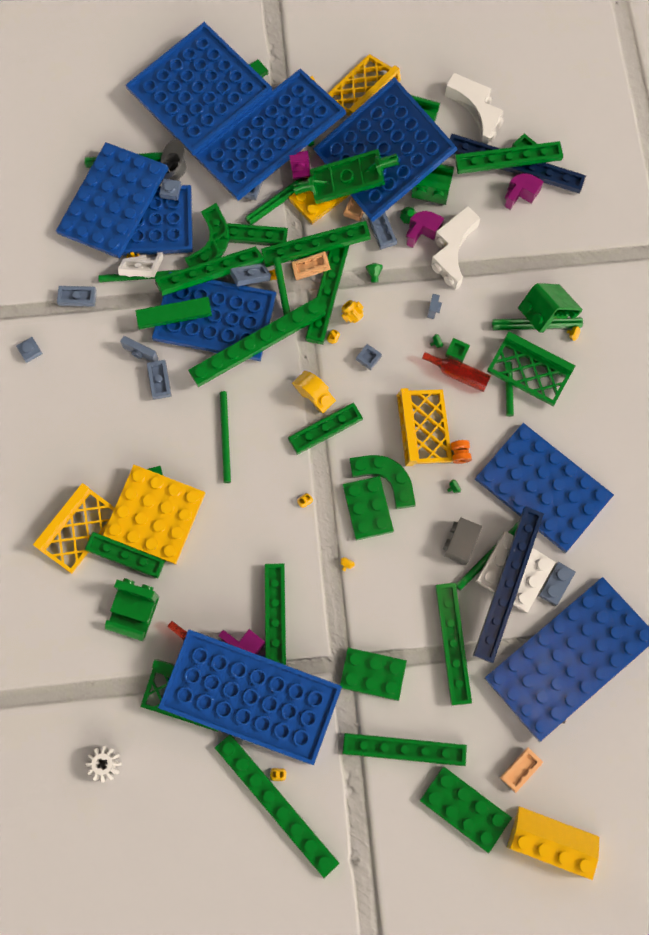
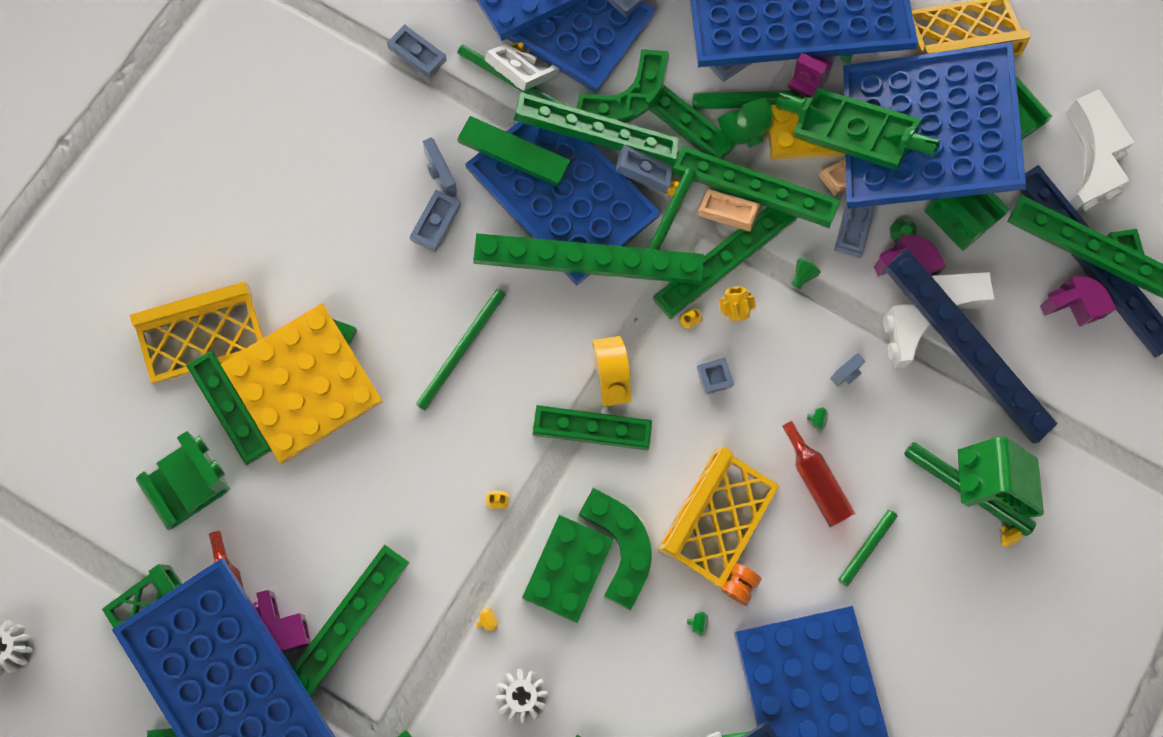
camera: 30 degrees right, 0 degrees up
(29, 349) = (313, 77): sand blue plate -> none
(287, 213) = (748, 123): none -> green cylinder
(393, 580) = (528, 688): none -> white gear
(457, 350) = (836, 449): green plate -> none
(463, 540) = (655, 703): dark grey brick -> none
(485, 250) = (970, 346): none -> dark blue plate
(541, 357) = (940, 537): green fence -> none

